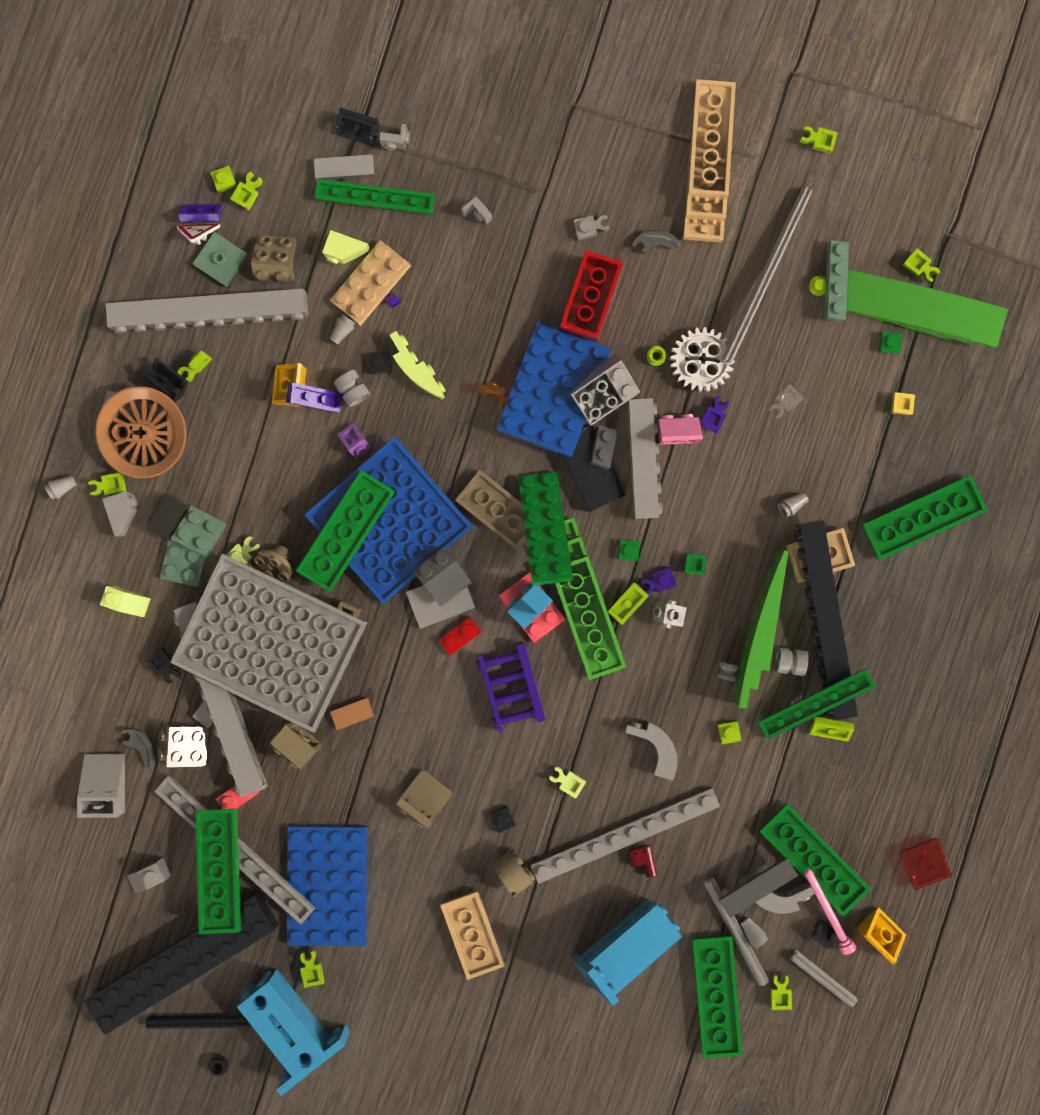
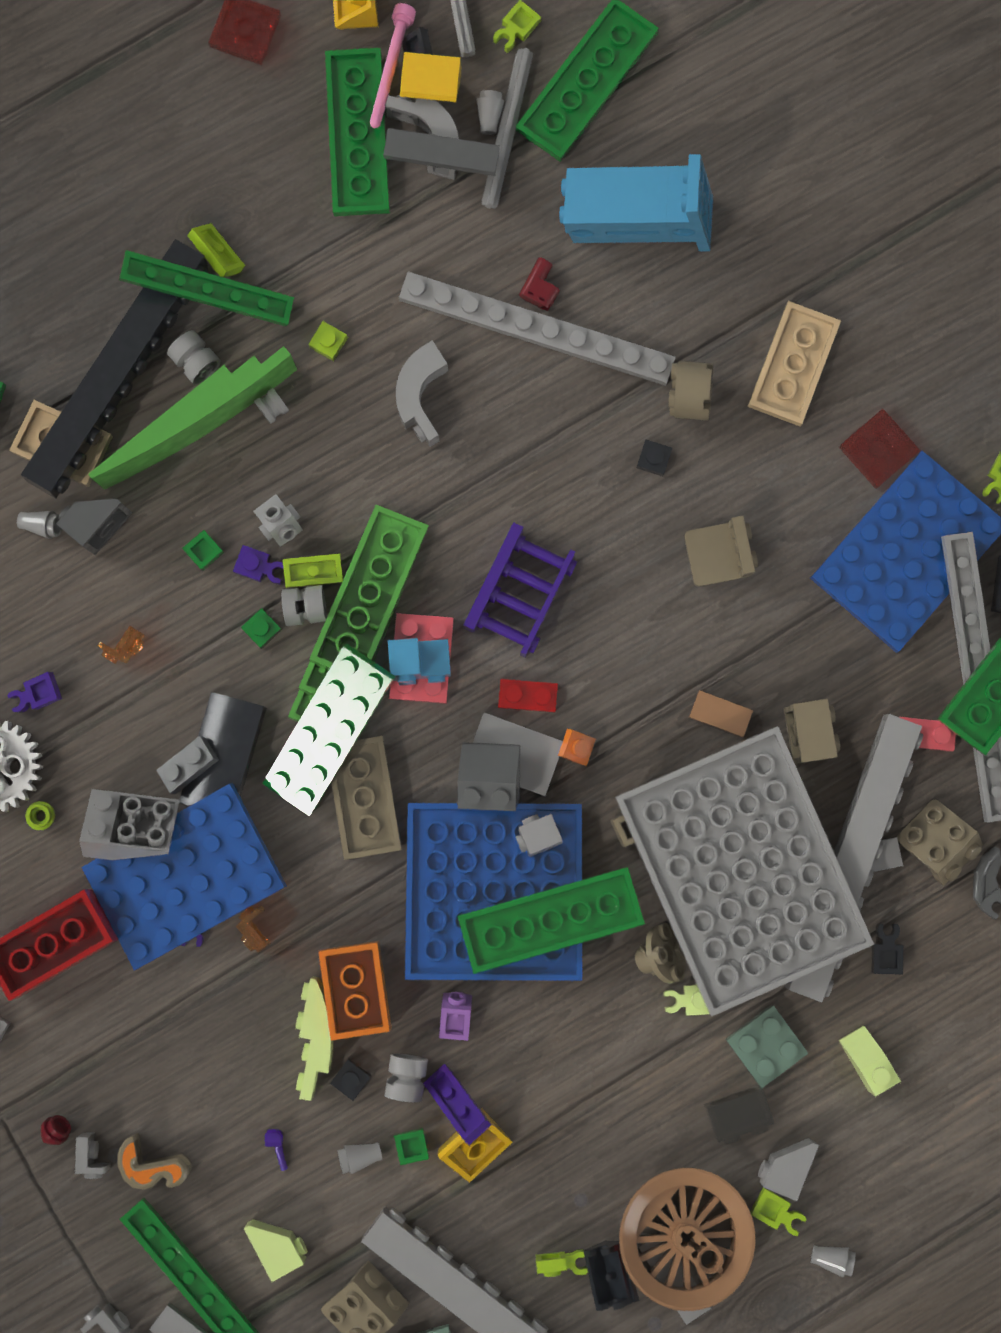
camera: 135 degrees left, 5 degrees down
(198, 532) = (719, 1067): sand green plate -> none
(319, 357) = (411, 1146): none -> green plate
(370, 282) = (281, 1181): tan plate -> none
(389, 927) = (879, 448): none -> clear red plate
(390, 568) = (538, 835): none -> light grey brick
(411, 631) = (576, 747): none -> orange plate
(415, 409) = (355, 990): none -> orange brick
(440, 228) = (146, 1174): none -> dark tan animal
(506, 208) = (55, 1130): none -> dark red plate
(570, 783) = (546, 434): yellowish green plate -> none
(611, 586) = (314, 605): none -> light grey wheel
(643, 458) = (155, 713): light grey brick -> none
(679, 430) = (89, 710): bright pink slope -> none
(688, 482) = (129, 644): none -> clear orange bracket
(764, 528) = (93, 521): none -> dark grey slope
(800, 923) = (430, 77): none -> yellow slope

